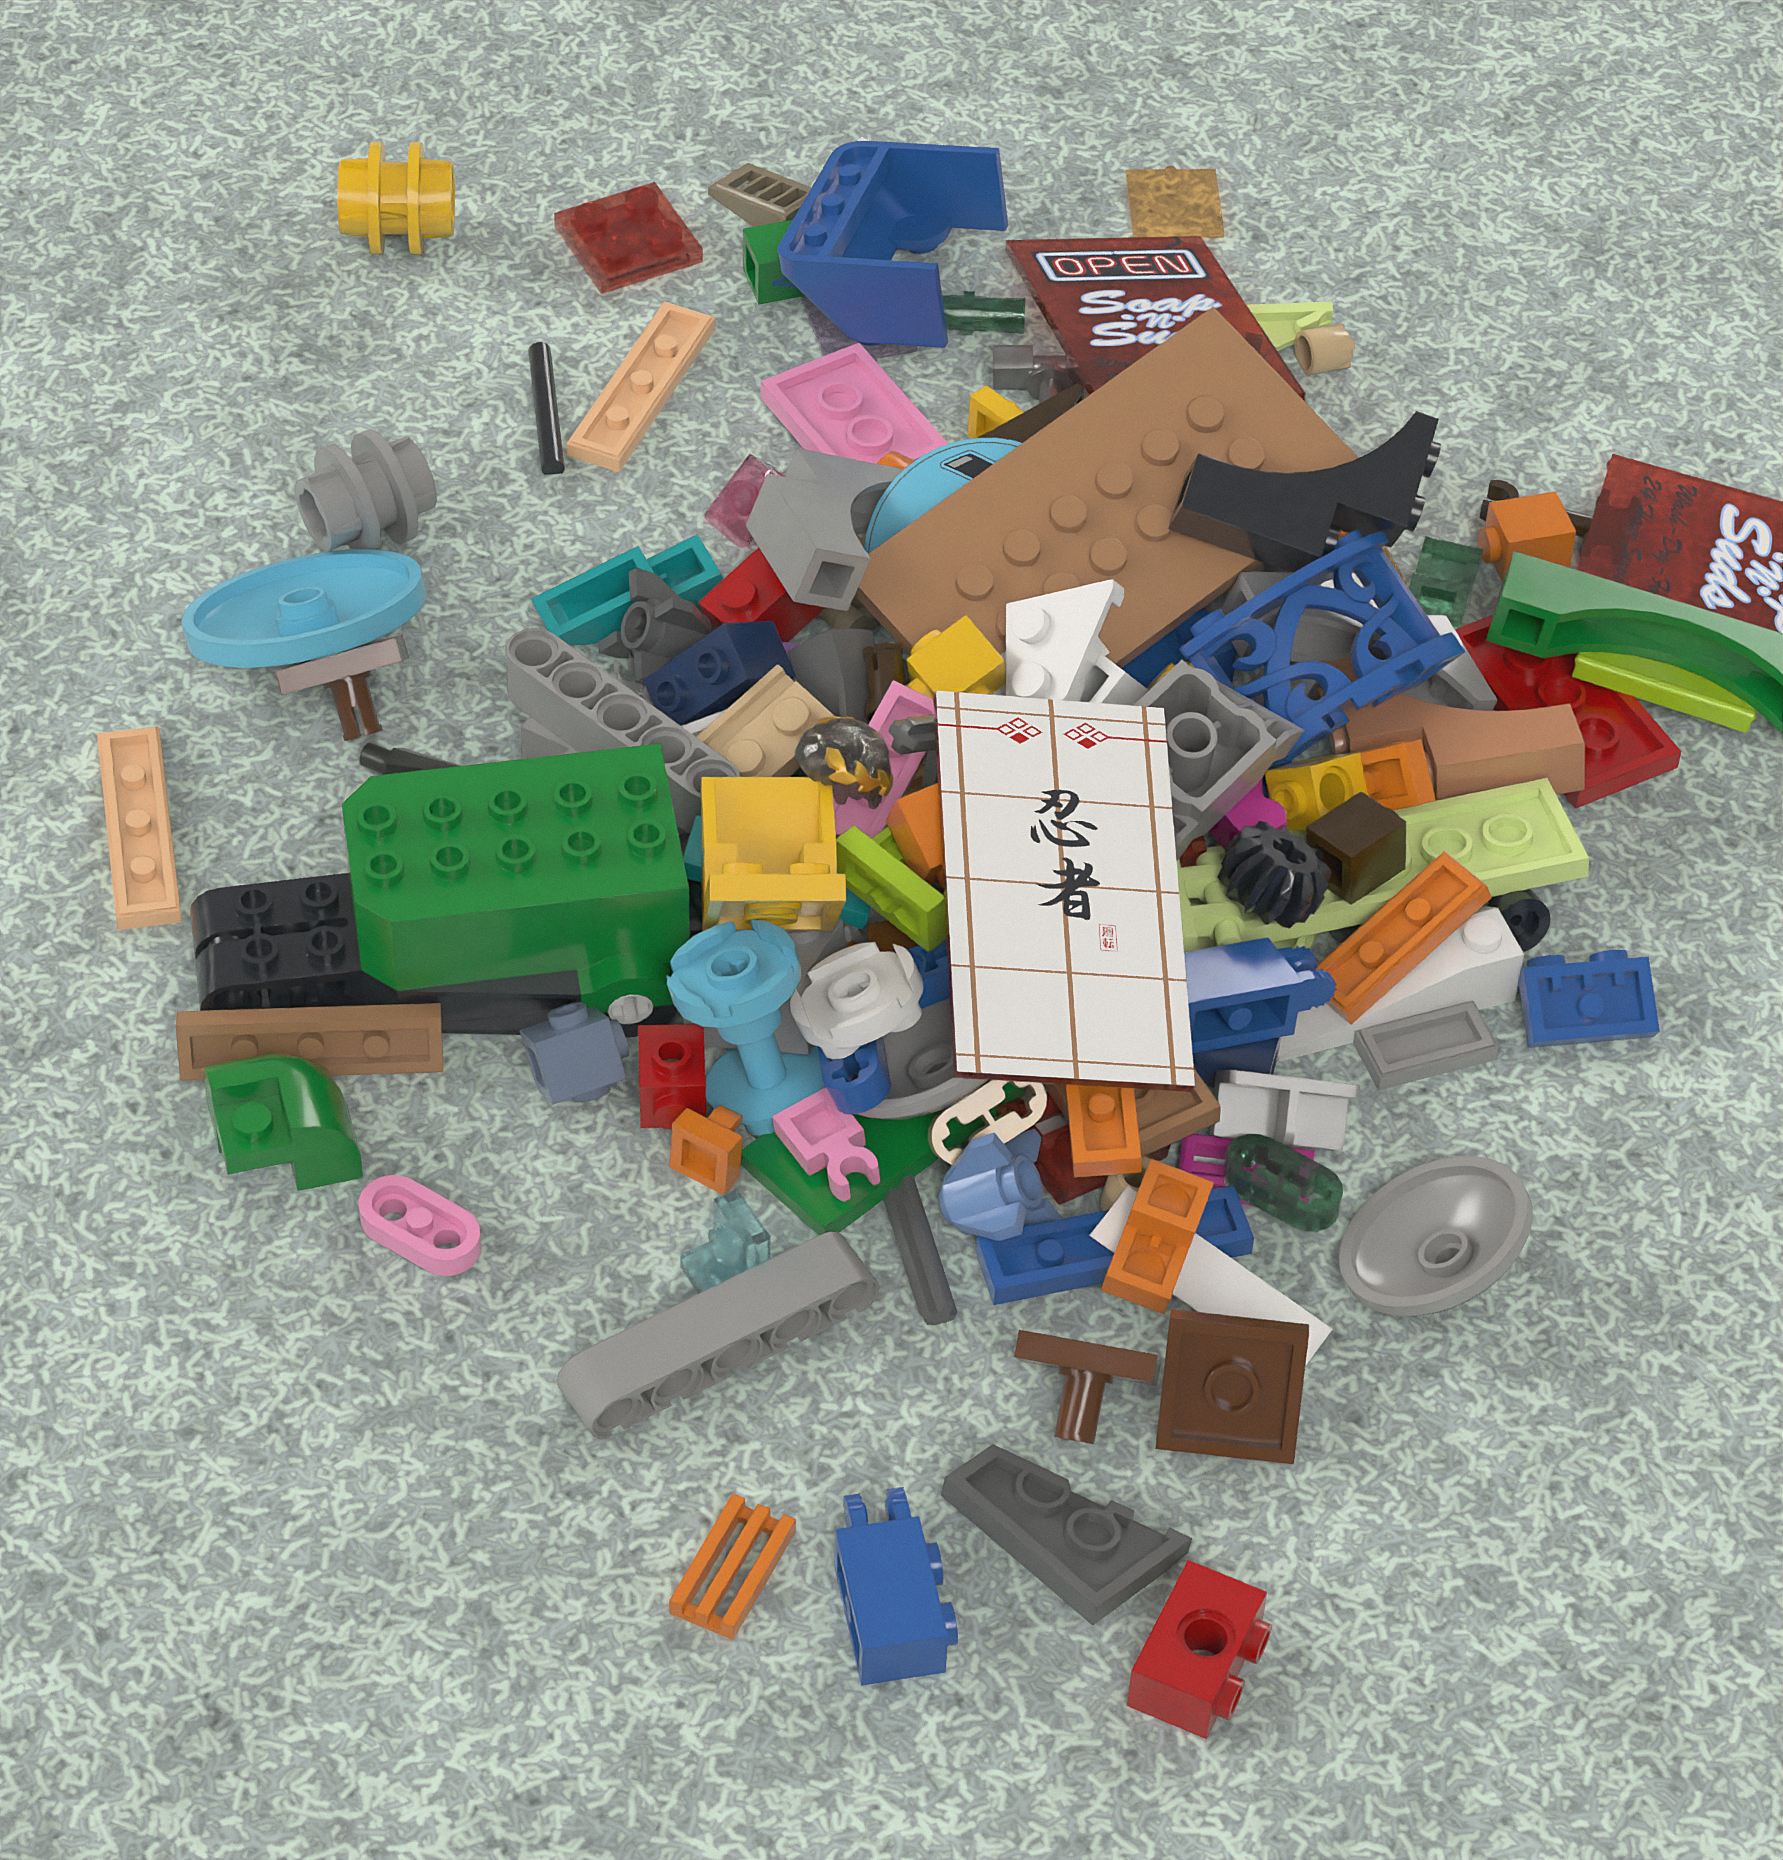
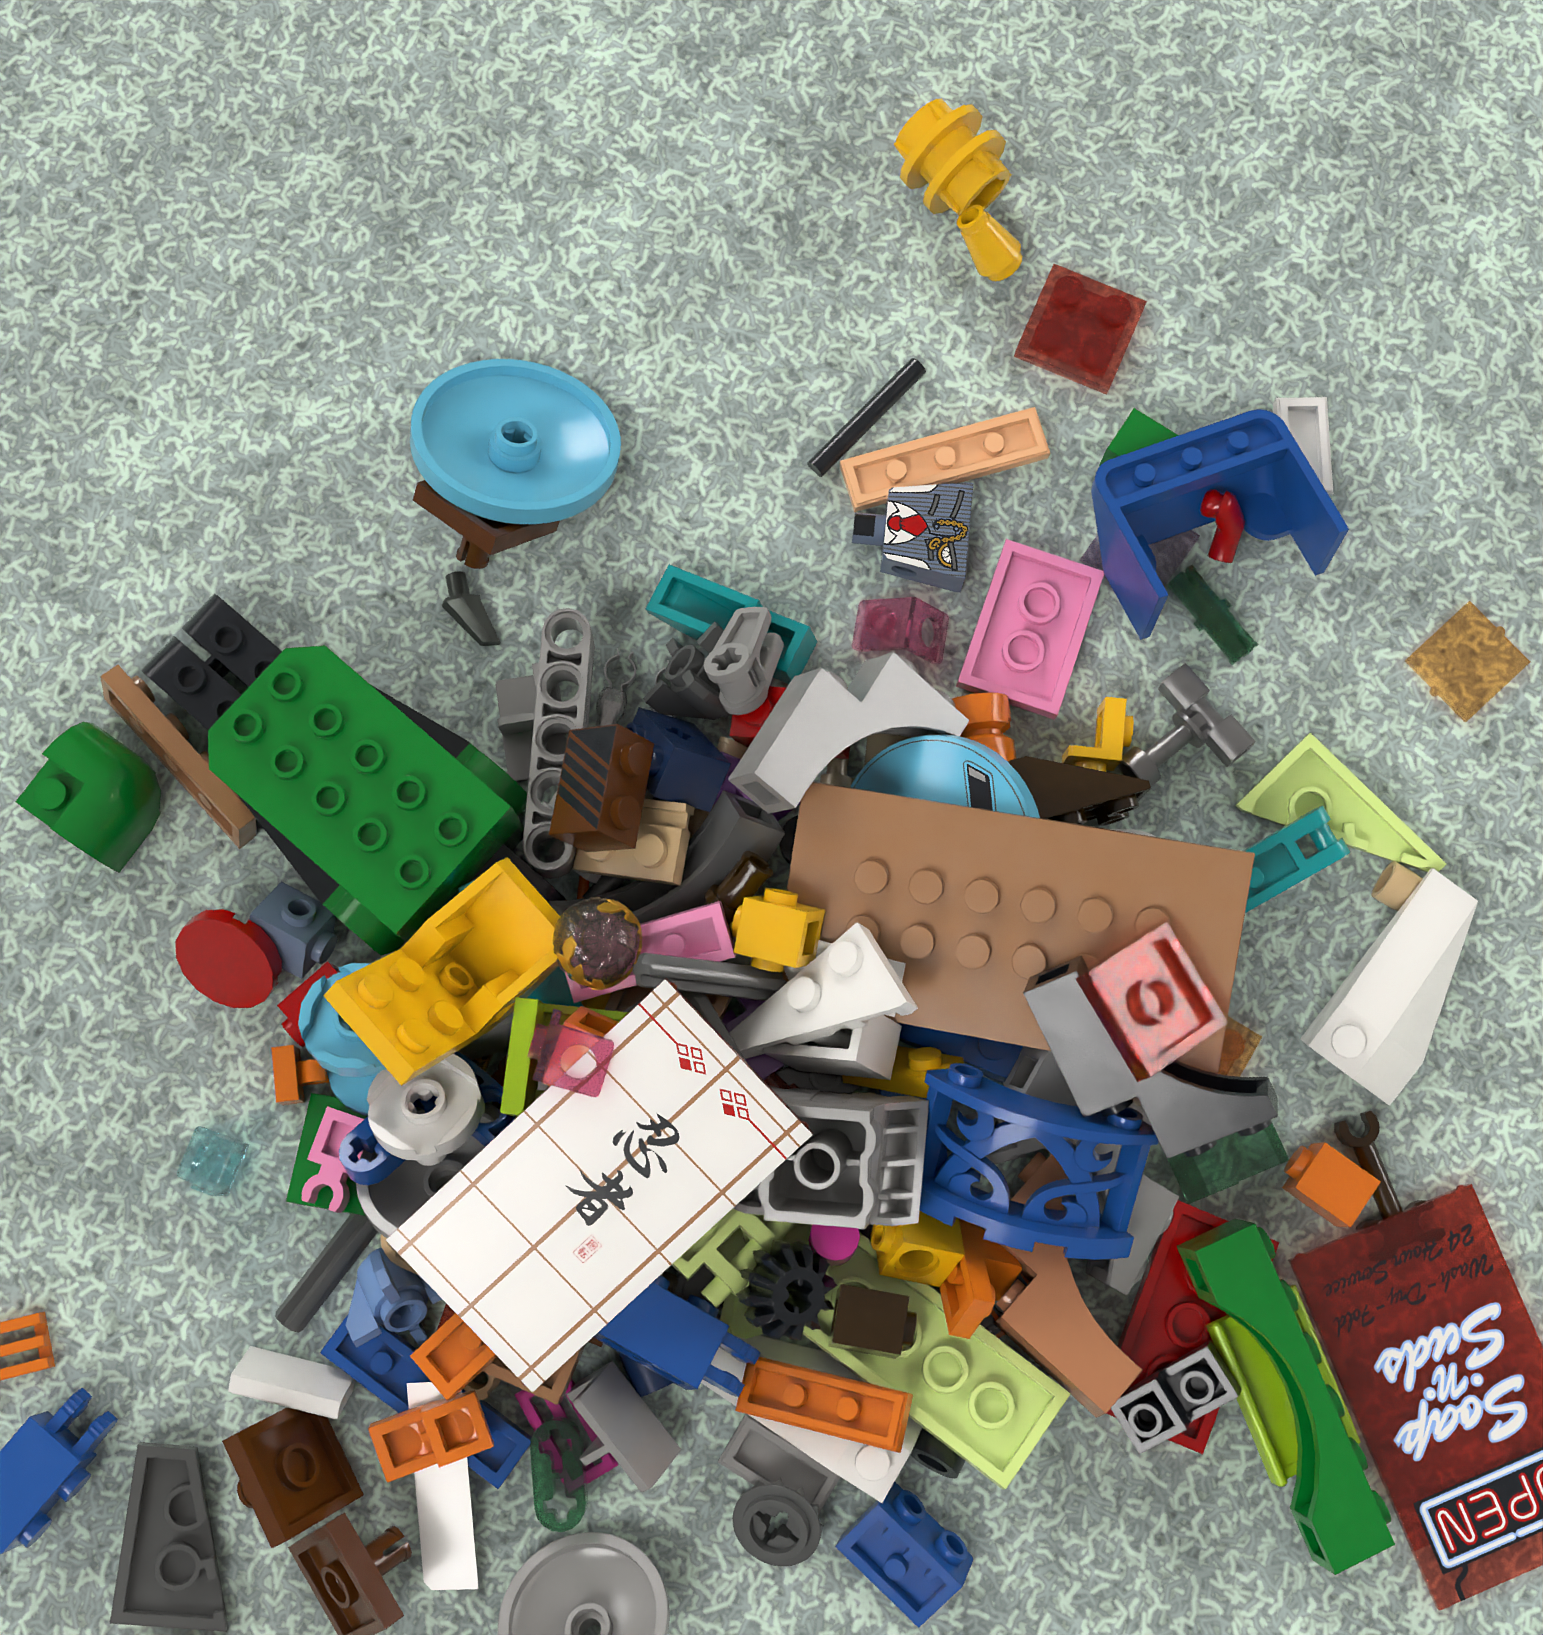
camera: 50 degrees right, 30 degrees up
(138, 828) = (280, 493): light nougat tile -> none
(360, 495) = (654, 386): light grey piece -> none
(425, 1225) = (91, 948): bright pink plate -> none
(495, 230) = (990, 245): none -> yellow cone
(550, 1113) = (228, 959): none -> red tile
(689, 567) = (744, 660): none -> light grey piece
(696, 429) = (922, 533): none -> torso
(707, 696) = (602, 788): none -> reddish brown brick
(716, 1332) = (152, 1204): light grey beam -> none
(756, 208) = (1182, 419): dark tan slope -> none
(893, 236) = (1229, 523): none -> red arm
(911, 823) = (549, 1045): none -> clear pink bracket
(1003, 1330) = (292, 1382): none -> white tile
(1129, 295) = (1293, 761): clear red piece -> none
(1269, 429) = (1151, 1001): none -> clear red plate
(1398, 377) = (1392, 999): none -> white wedge
(1487, 1037) = (791, 1541): none -> dark grey gear
(1615, 724) = (1175, 1397): none -> slope

